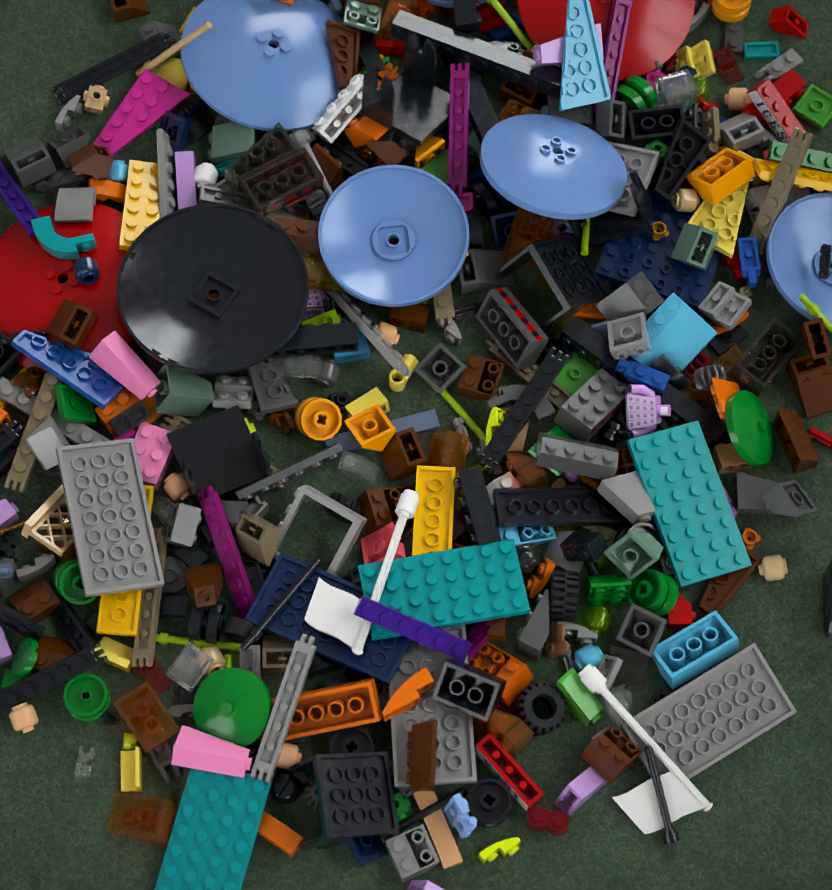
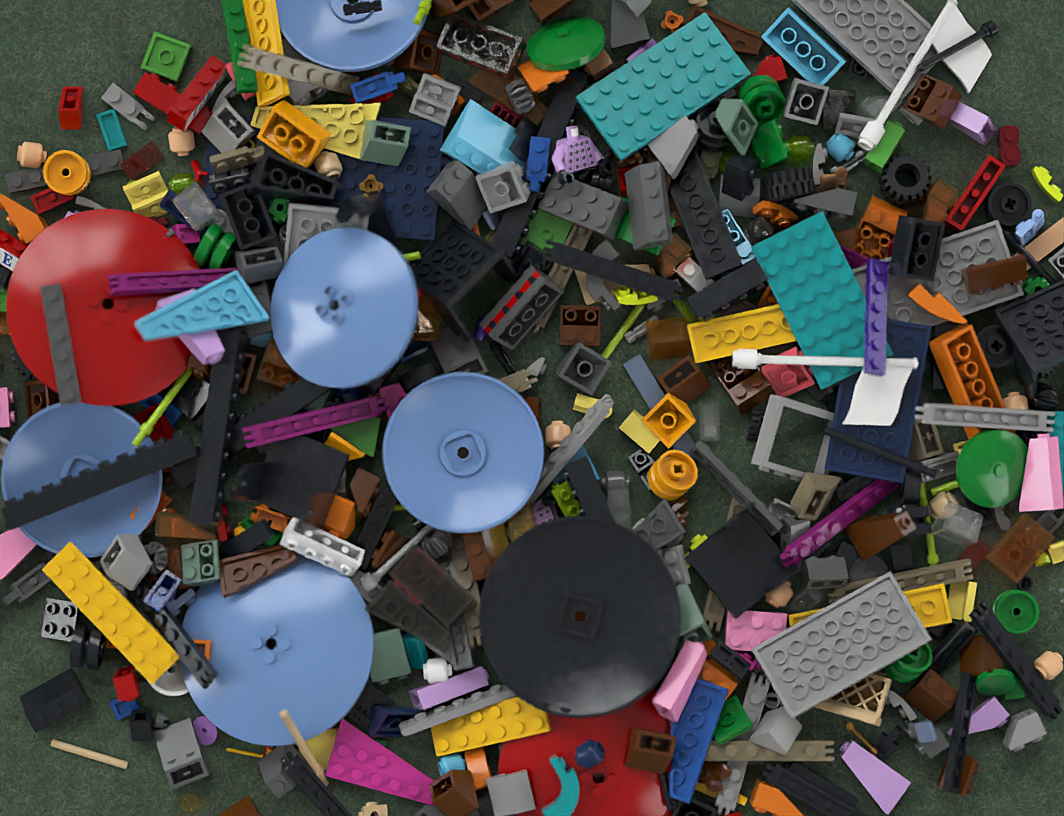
camera: 105 degrees left, 20 degrees up
(767, 306) = (421, 55): none -> reddish brown slope

